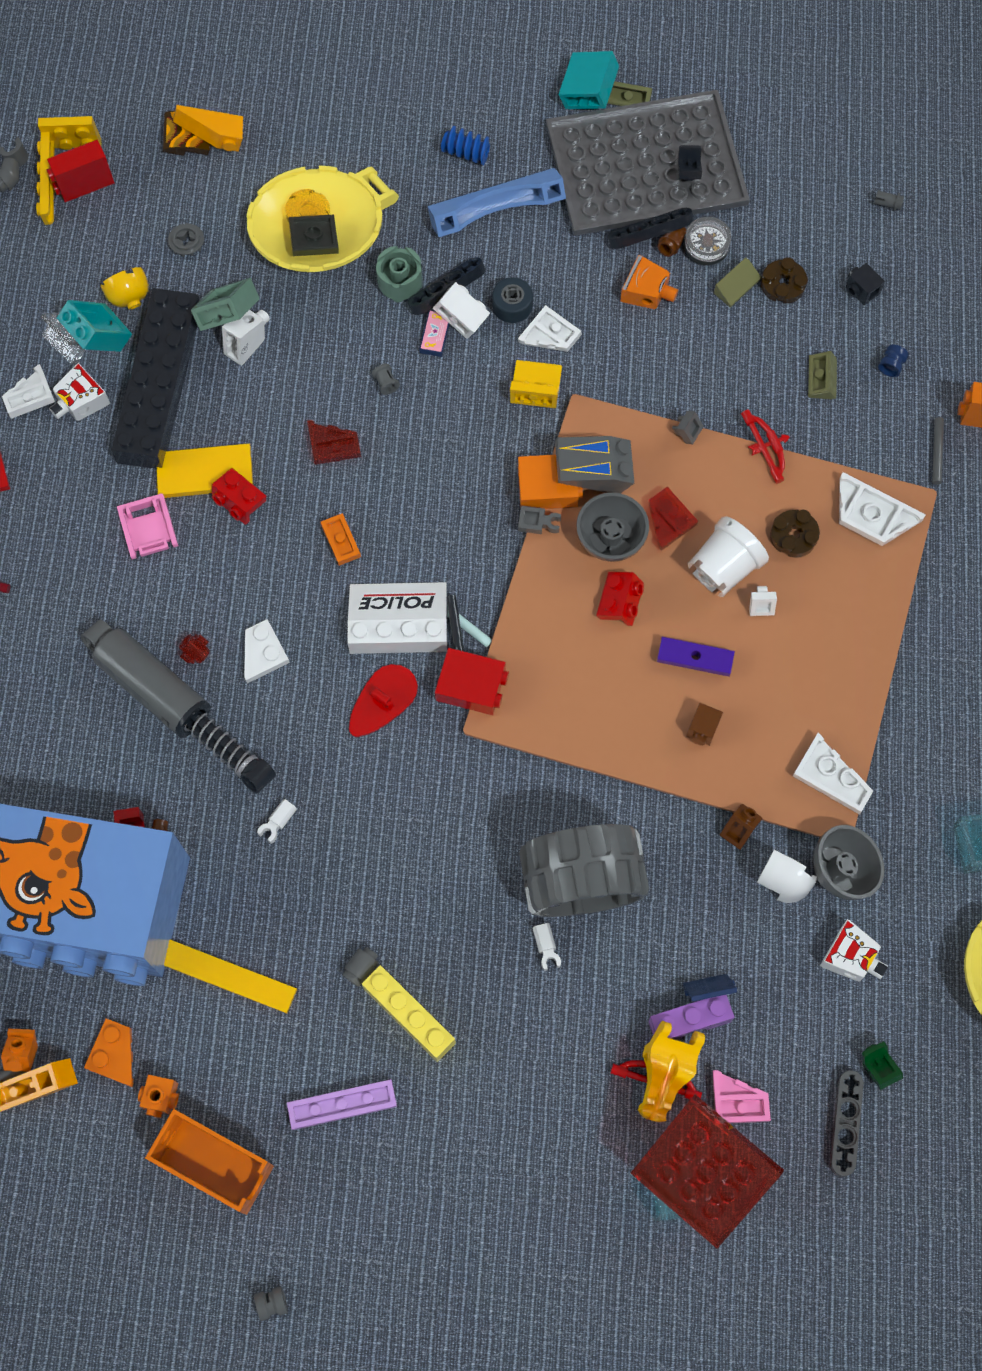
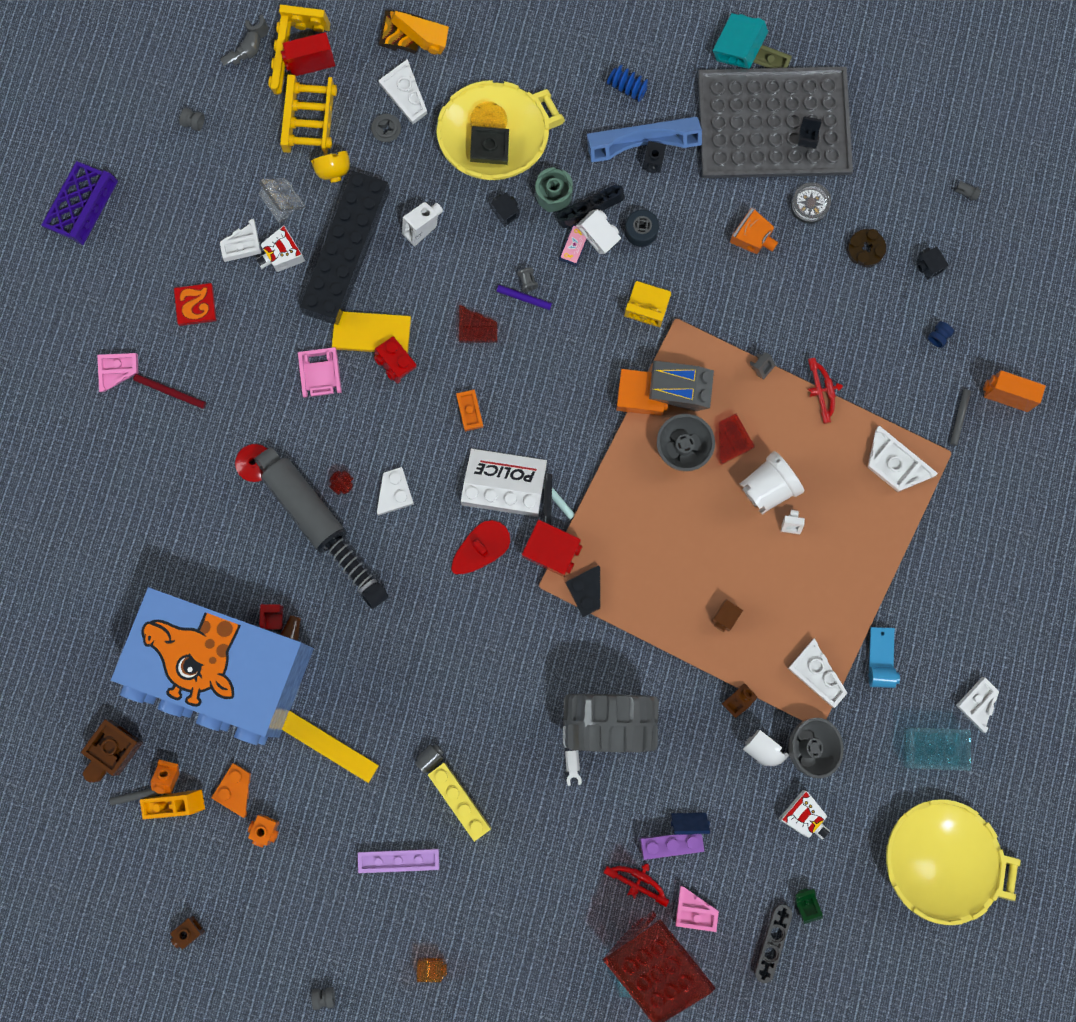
camera: 10 degrees right, 10 degrees up
(68, 231) = (291, 122): none -> yellow fence
(74, 657) = (242, 463): none -> red dish
(85, 1249) = (192, 929): none -> reddish brown brick
(91, 326) = (307, 185): teal window -> none
(200, 195) = (404, 91): none -> white wing
(209, 1162) = (293, 889): orange piece -> none
(228, 301) = (410, 193): sand green window -> none
(277, 820) = (385, 631): white bar -> none
(344, 304) = (505, 208): none -> black brick
(385, 401) = (524, 297): none -> dark purple bar
(408, 1239) = (431, 970): none -> clear orange brick
(512, 220) = (654, 157): none -> black brick
(523, 726) = (586, 591): none -> black wing
(534, 520) = (625, 422): dark grey plate -> none
(550, 332) = (667, 260): white wing -> none
(620, 597) = (681, 499): red bracket -> none
(650, 228) = (785, 181): black beam -> none
(669, 1068) = (647, 880): yellow animal -> none
(670, 242) = (781, 197): reddish brown cone -> none
(710, 659) = (742, 562): dark purple tile -> none
(737, 282) = (828, 243): olive slope -> none
(798, 520) = (839, 475): dark brown plate -> none
(822, 376) = (881, 336): olive slope -> none
(906, 745) = (881, 658): none -> dark azure door

